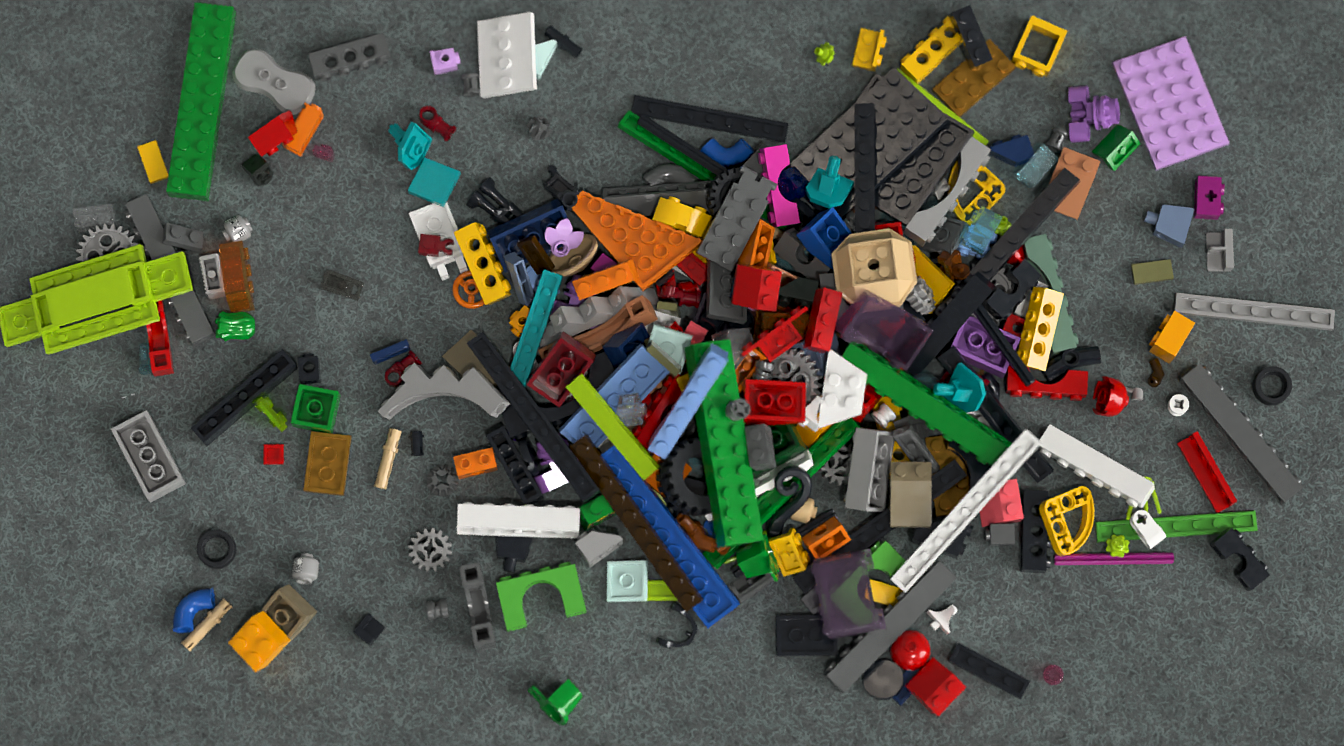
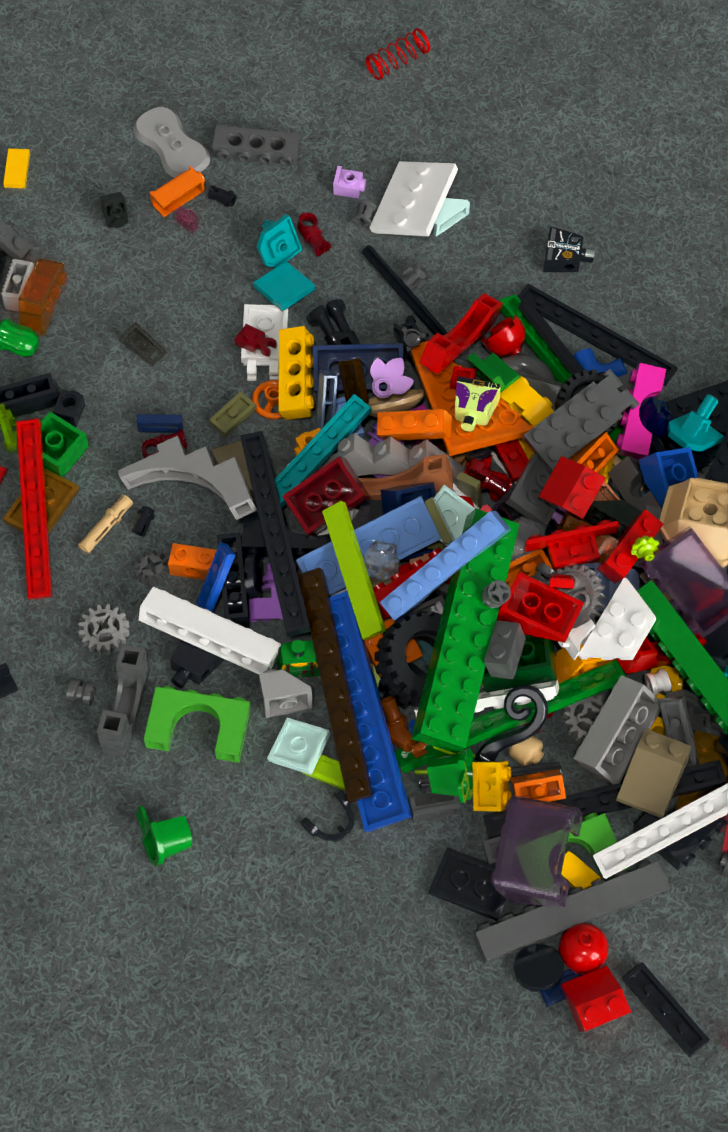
camera: 25 degrees right, 15 degrees down
(201, 101) = (89, 132): green brick -> none
(237, 229) = (65, 252): light grey head -> none
(273, 134) = (144, 177): red slope -> none
(326, 473) = (34, 509): none -> red tile
(342, 117) = (222, 196): none -> black pin
(445, 318) = (232, 414): none -> olive plate
(502, 474) = (215, 577): none -> blue tile
(536, 145) = (403, 291): none -> black axle
(563, 41) = (477, 210): black pin -> none
(605, 175) = (446, 348): none -> red arch
(625, 218) = (461, 372): none -> red tile
(638, 156) = (505, 337): none -> red cylinder
(645, 239) = (475, 402): none -> torso
(648, 200) = (493, 370): none -> green panel
(654, 53) = (565, 251): none -> black torso
(781, 372) = (561, 581): none -> red tile
(837, 322) = (645, 547): none -> lime plant
(942, 618) = (635, 928): white piece -> none

